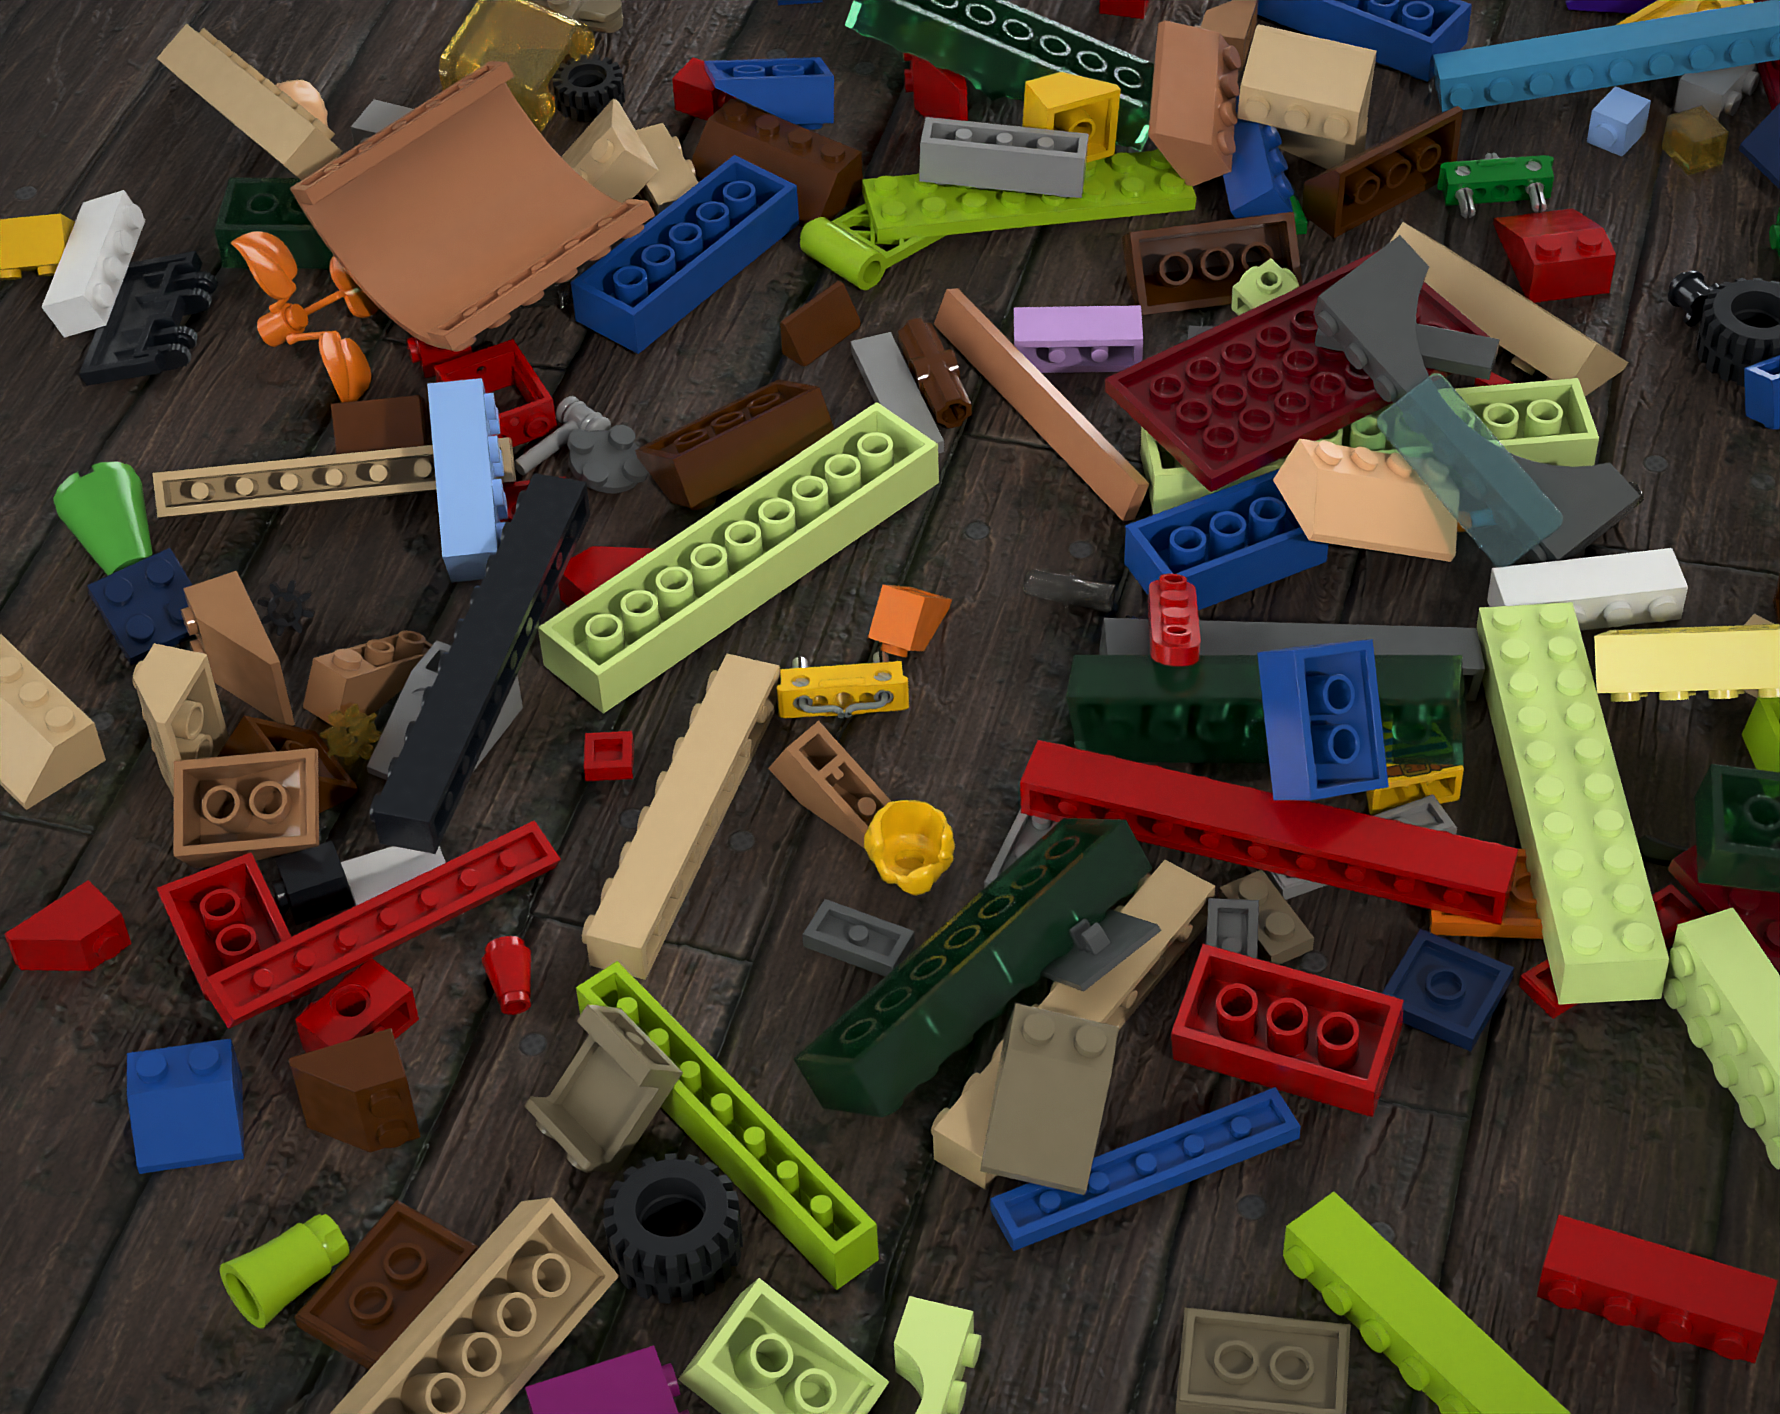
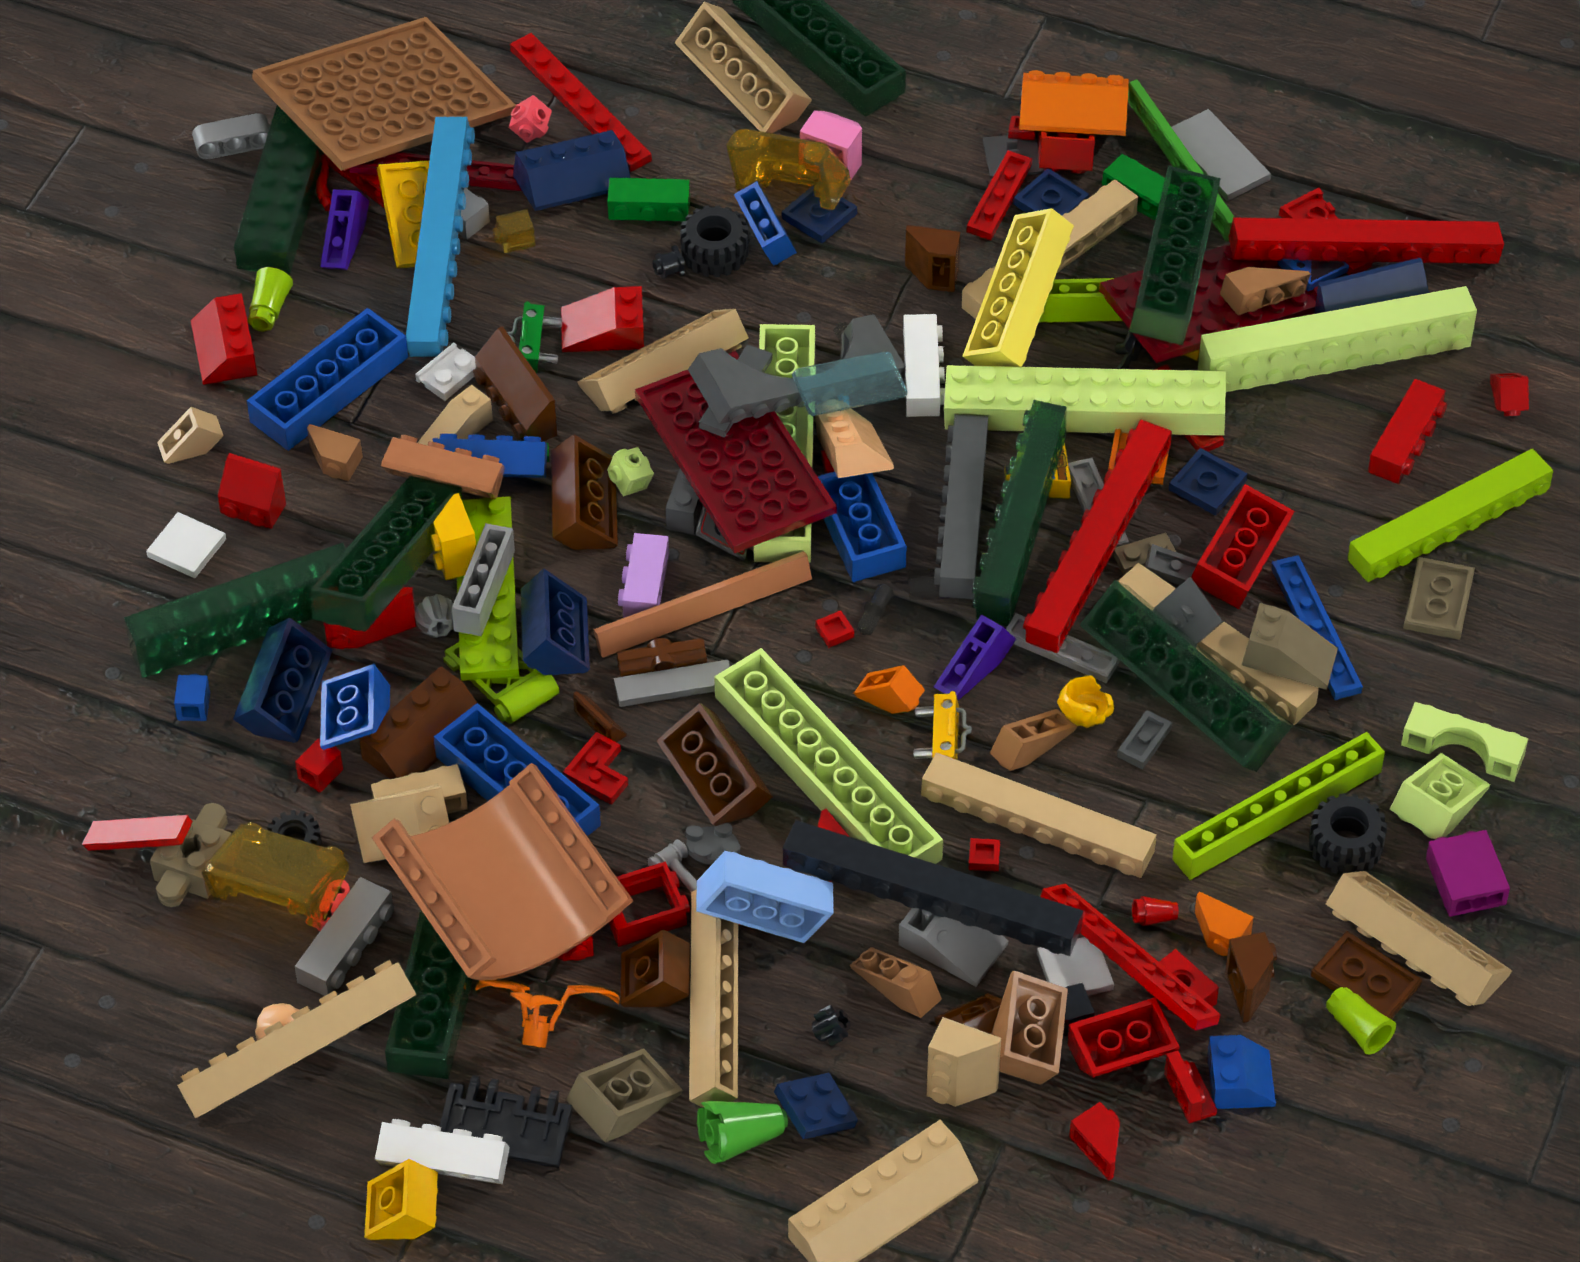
camera: 85 degrees left, 5 degrees up
(152, 1022) = (1188, 1088): none -> red bracket
(181, 412) = (622, 1094): none -> dark tan slope
(236, 645) = (878, 1040): medium nougat slope -> none
(344, 743) = (955, 986): clear yellow gear -> none
(478, 1063) = (1220, 922): none -> orange slope
(606, 1092) = (1259, 855): dark tan panel -> none
(723, 327) = (591, 771): none -> red plate
(819, 30) = (283, 682): none -> dark blue slope
(954, 249) = (554, 626): none -> dark blue slope
(994, 711) = (976, 657): none -> dark purple slope
(1022, 547) = (834, 629): none -> red plate
(1173, 621) = (957, 539): red plate -> none
(1307, 84) = (469, 399): tan slope -> none
(1323, 720) = (1066, 475): blue slope -> none
(1401, 112) = (447, 371): none -> white plate
(1618, 121) = (486, 265): light blue brick -> none

